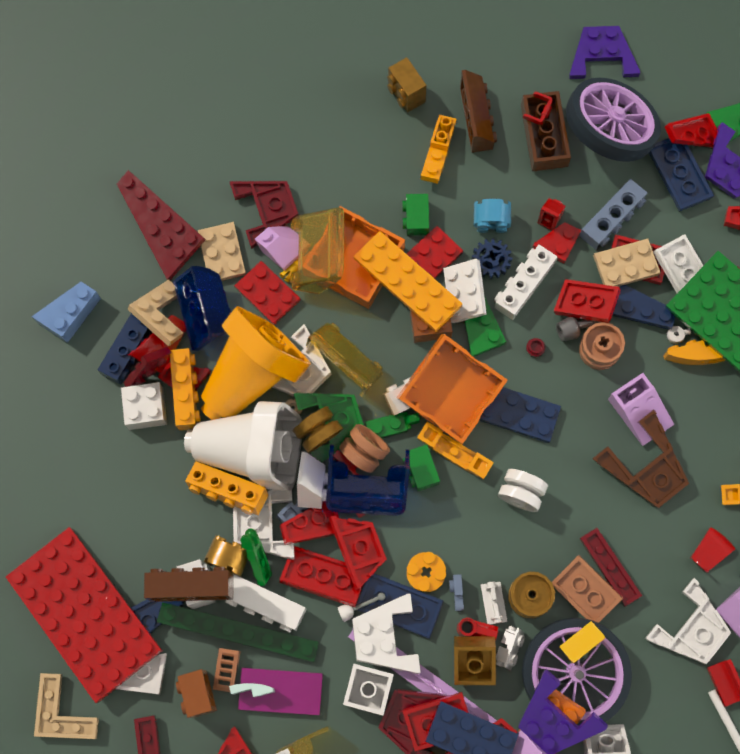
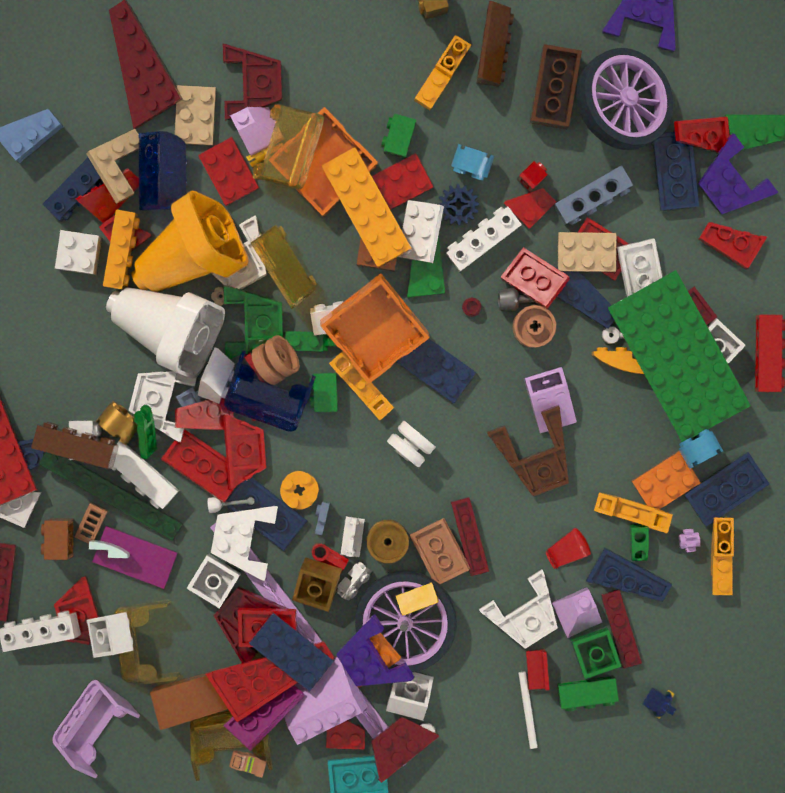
camera: 10 degrees right, 15 degrees up
(147, 367) = (91, 220): dark red wing -> none
(226, 488) = (135, 357): light orange brick -> none
(315, 427) = (236, 332): pearl gold wheel -> none
(546, 111) = (560, 70): red piece -> none

